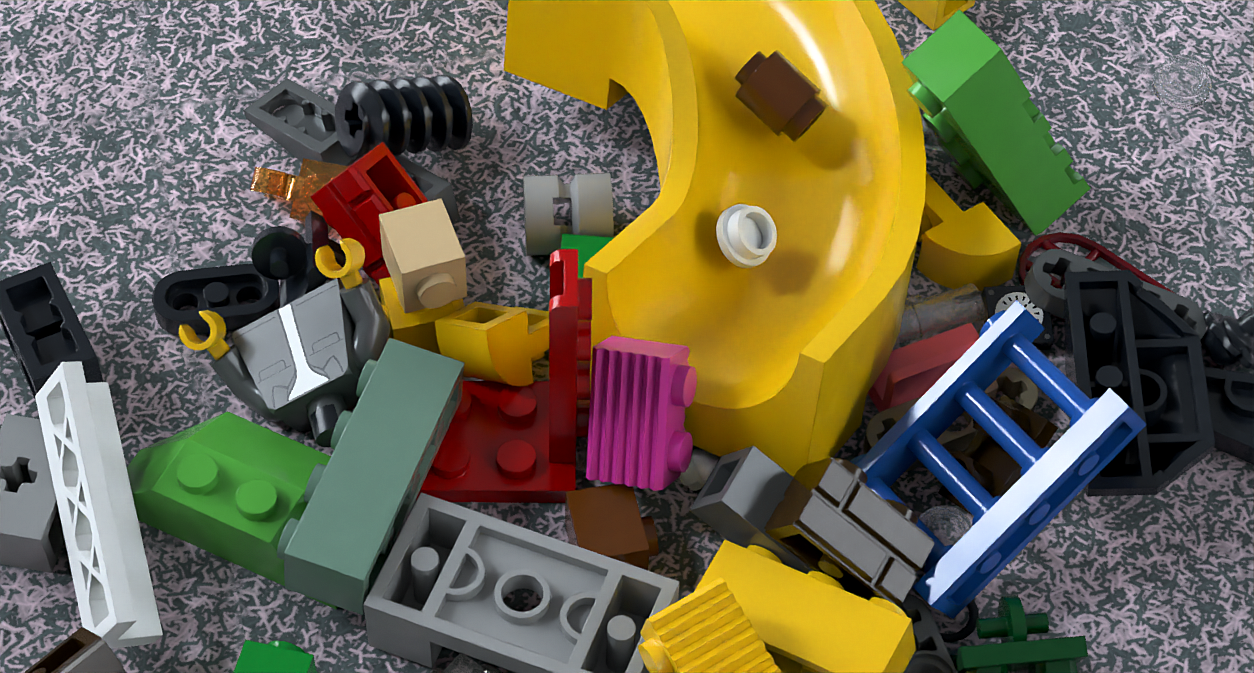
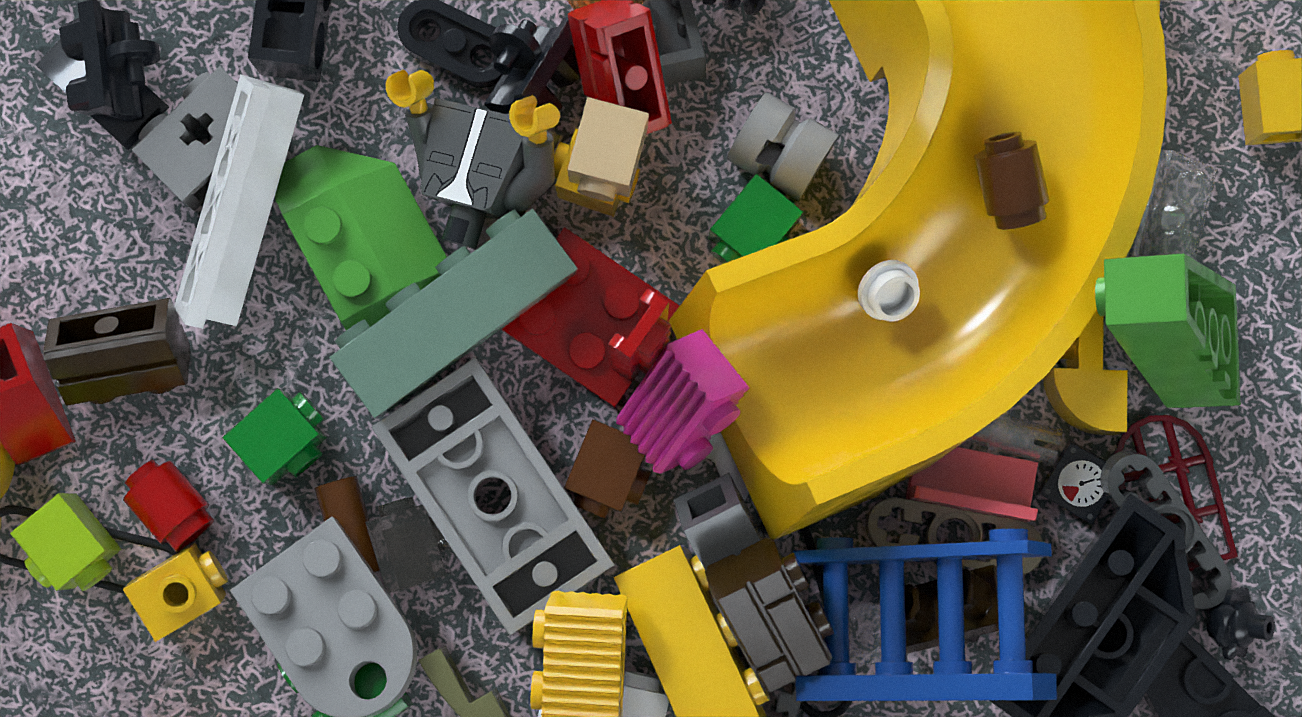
camera: 35 degrees right, 30 degrees up
(495, 341) = (643, 242): yellow brick -> none

